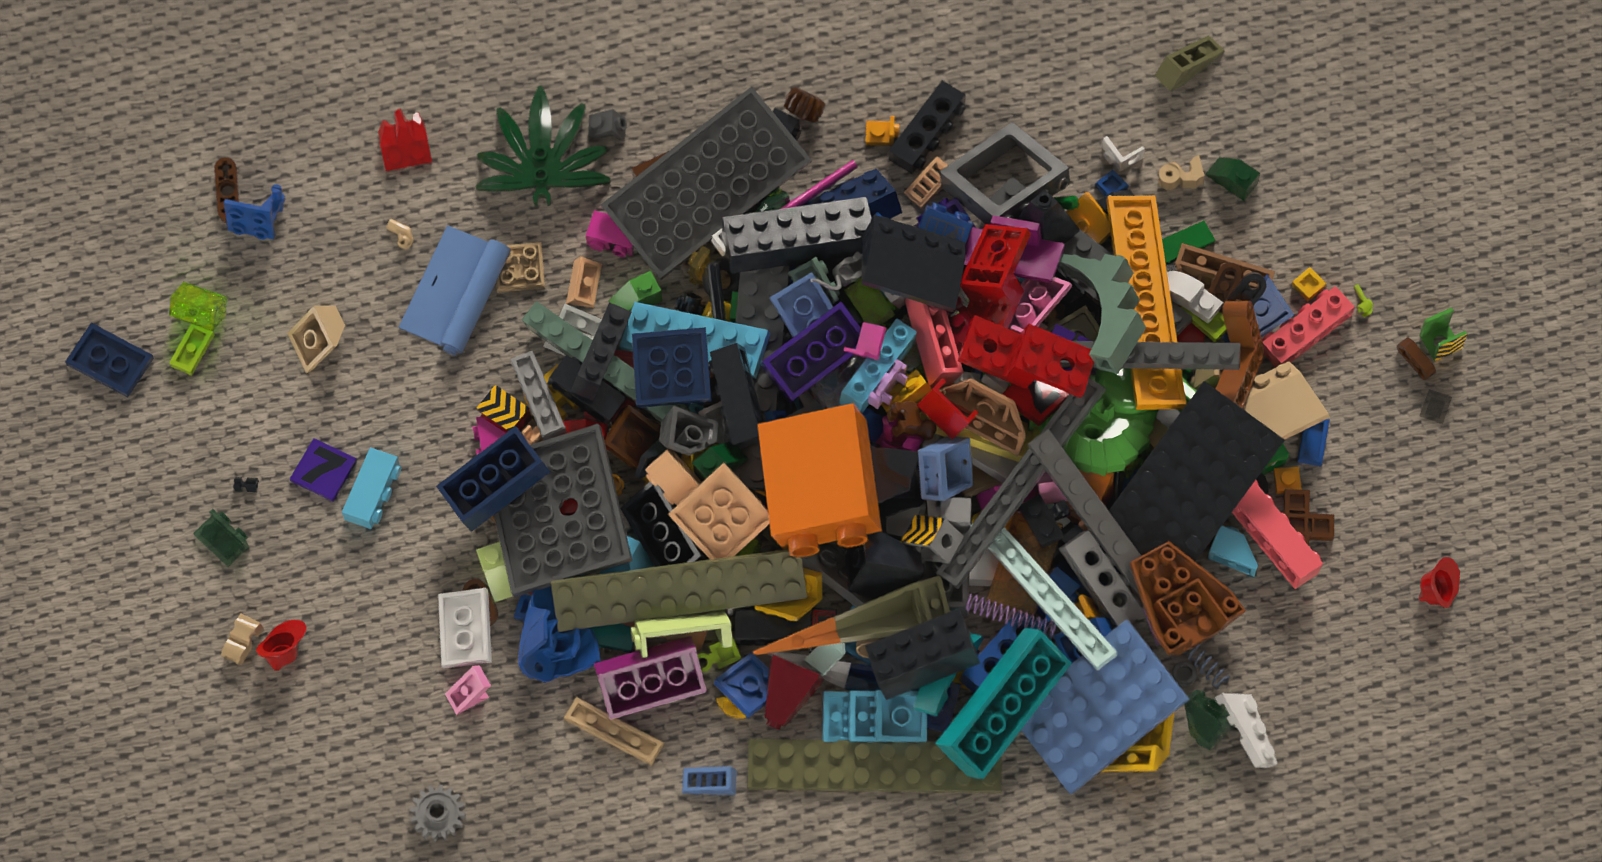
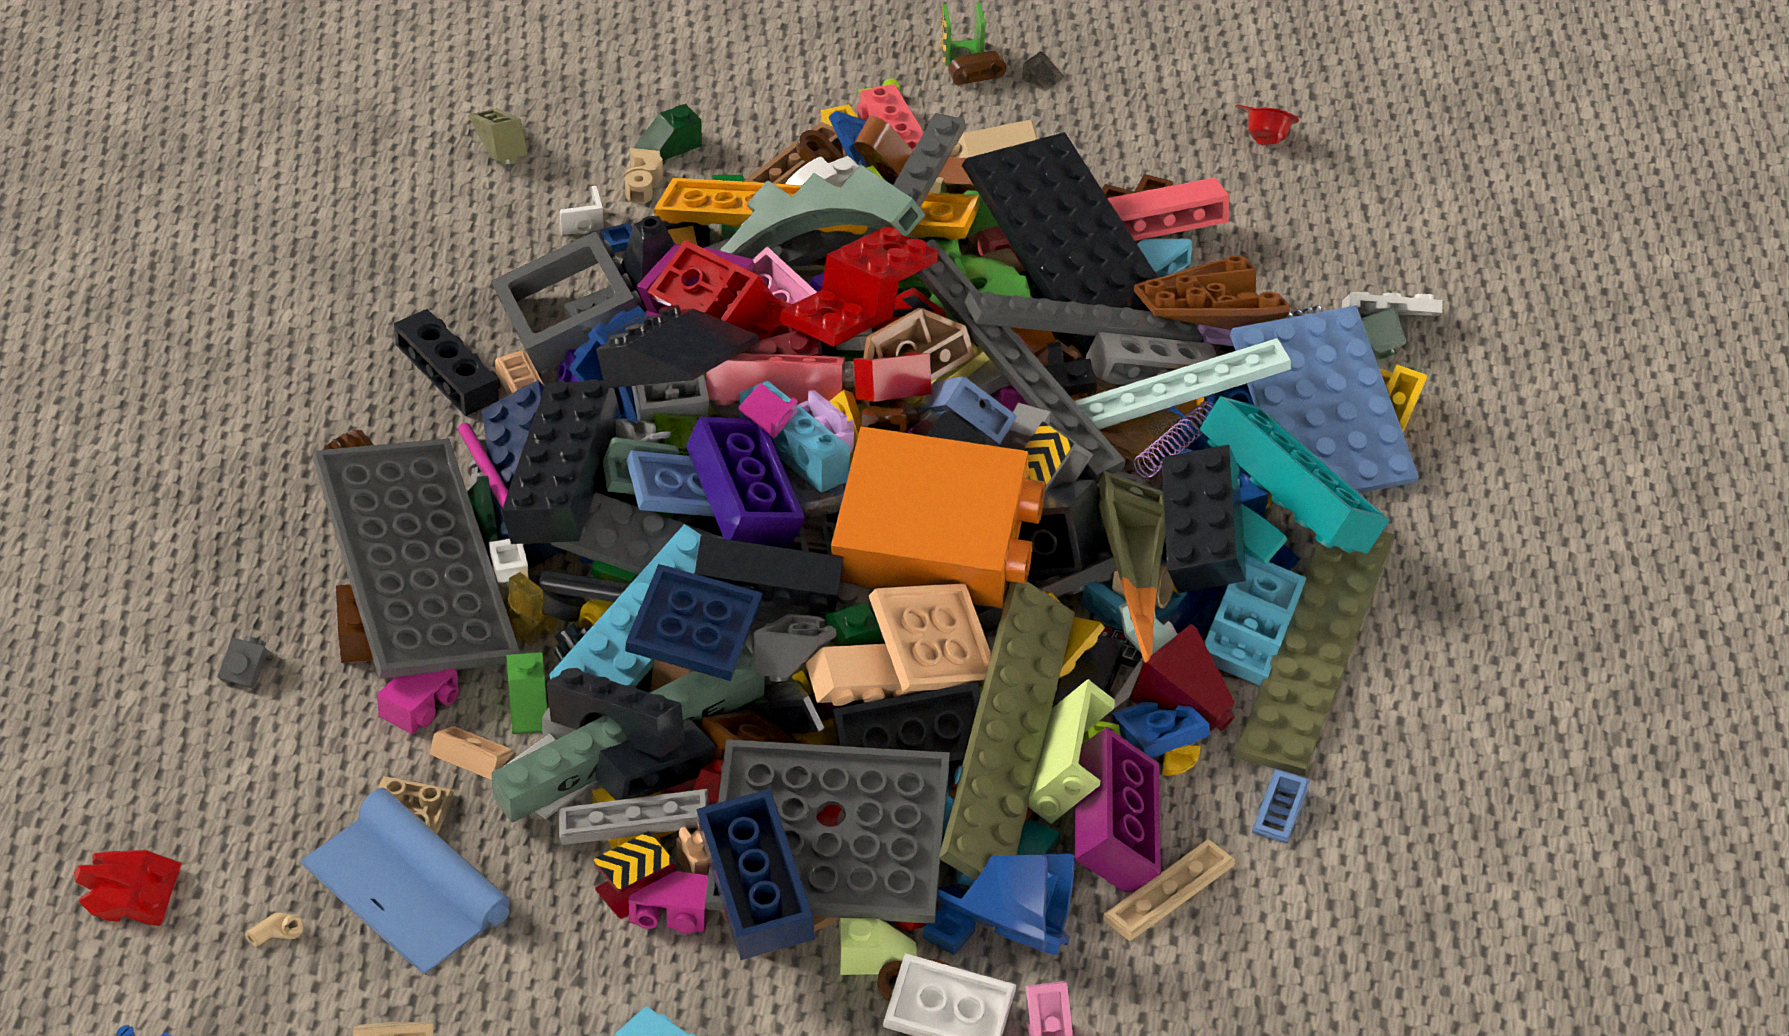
camera: 75 degrees left, 25 degrees down
(541, 163) = (274, 726): dark green plant -> none
(881, 132) = (426, 405): light orange bracket -> none
(1245, 293) = (844, 131): black plate -> none

